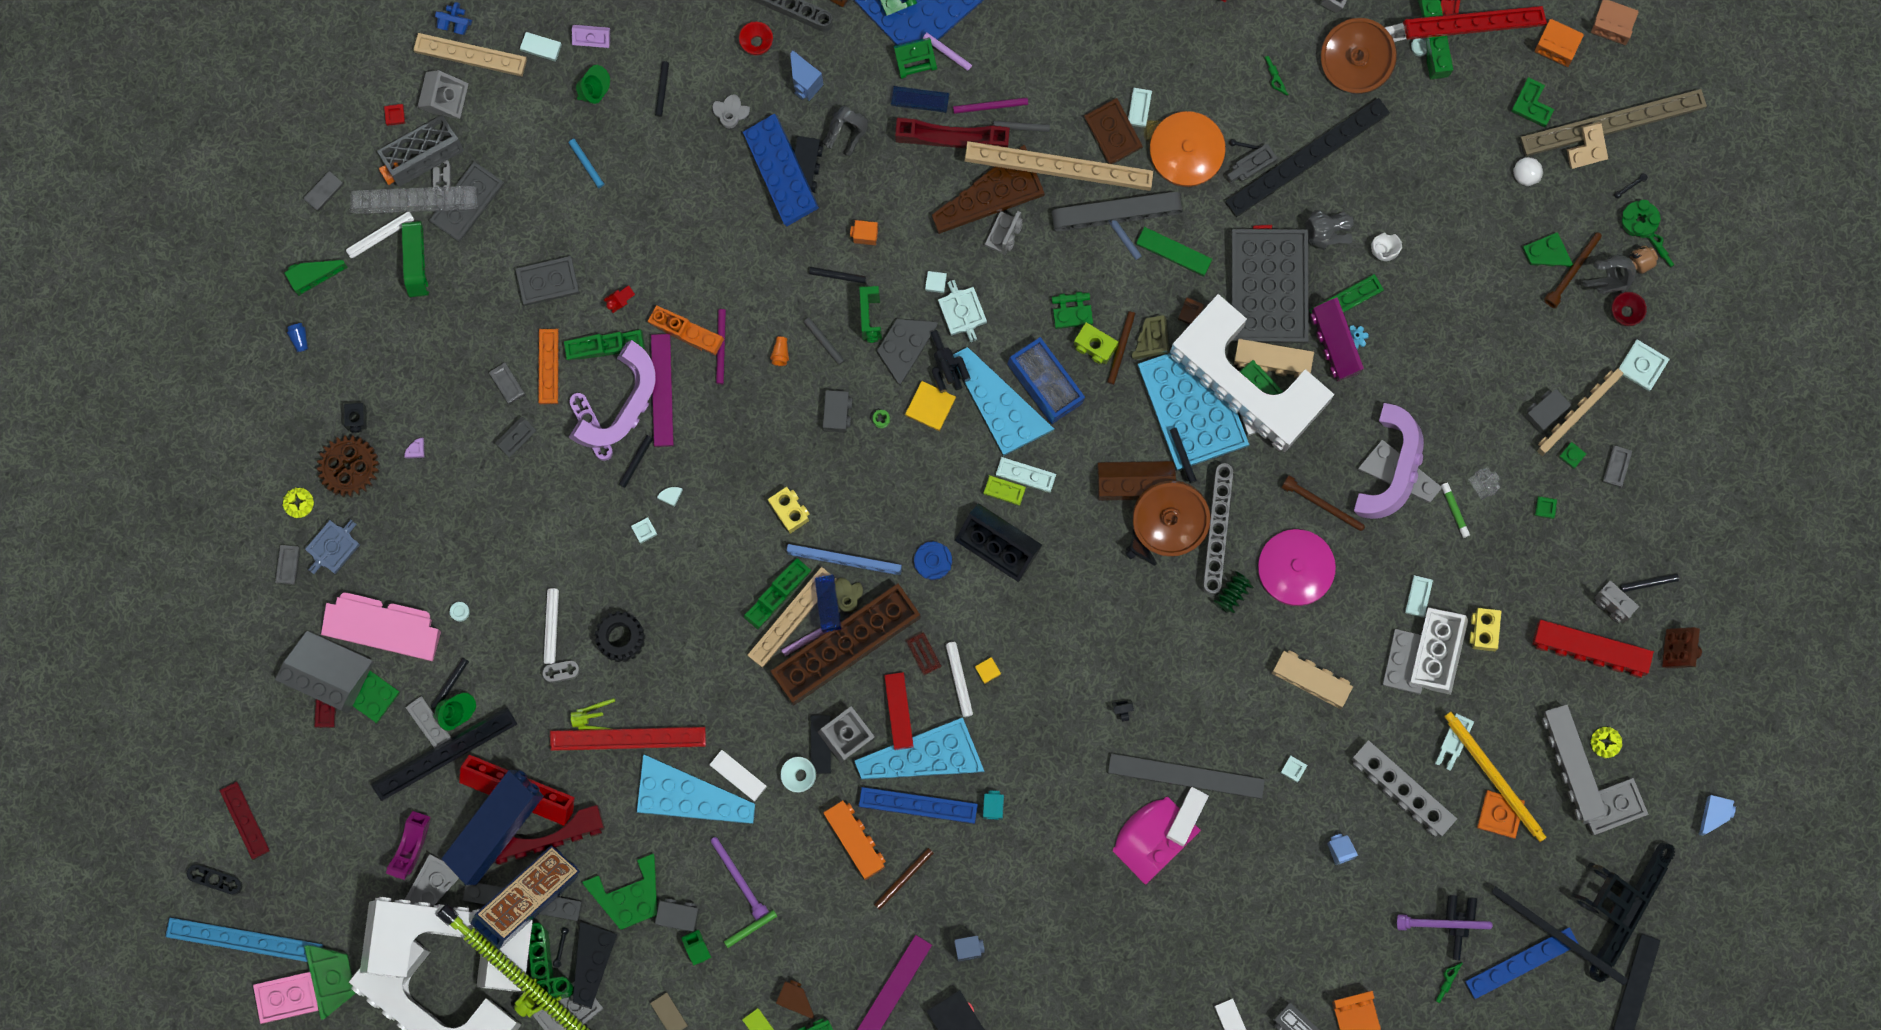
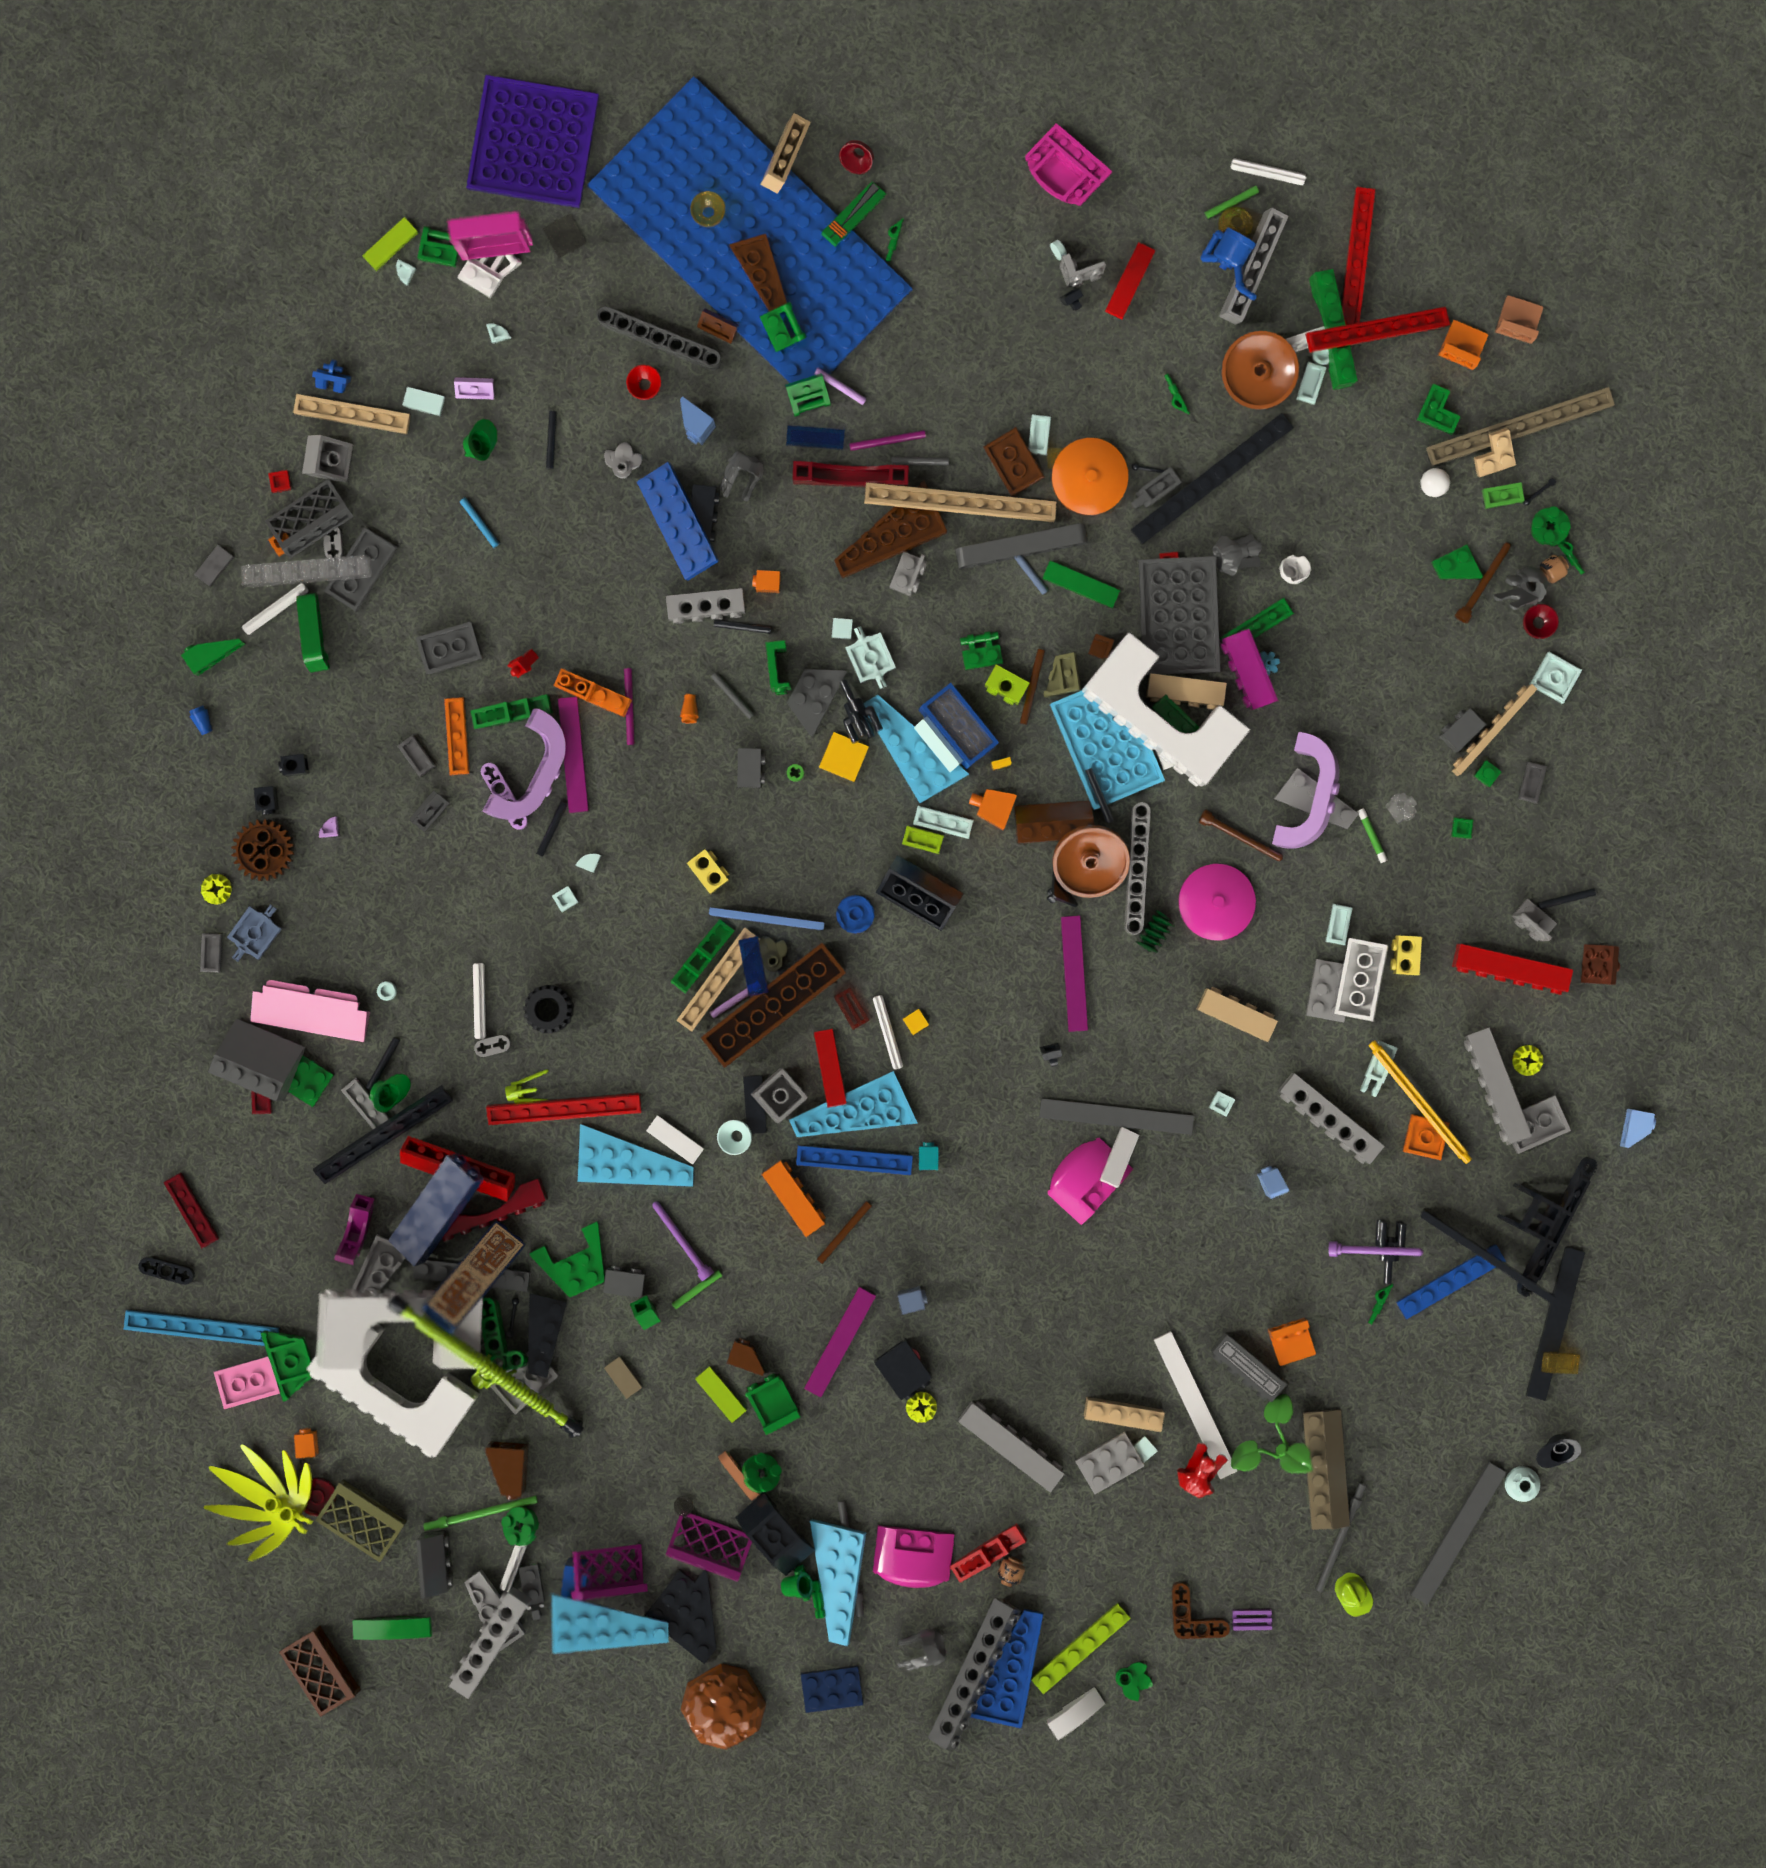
camera: 10 degrees left, 10 degrees up
(393, 388) = (302, 765): none -> black brick
(794, 246) = (676, 602): none -> light grey brick
(1025, 396) = (938, 744): none -> light aqua tile
(1077, 461) = (994, 806): none -> orange torso
(1085, 420) = (1002, 763): none -> yellow tile
(1150, 631) = (1074, 973): none -> magenta tile
(1408, 71) = (1311, 383): none -> light aqua tile
(1594, 187) = (1503, 495): none -> bright green plate

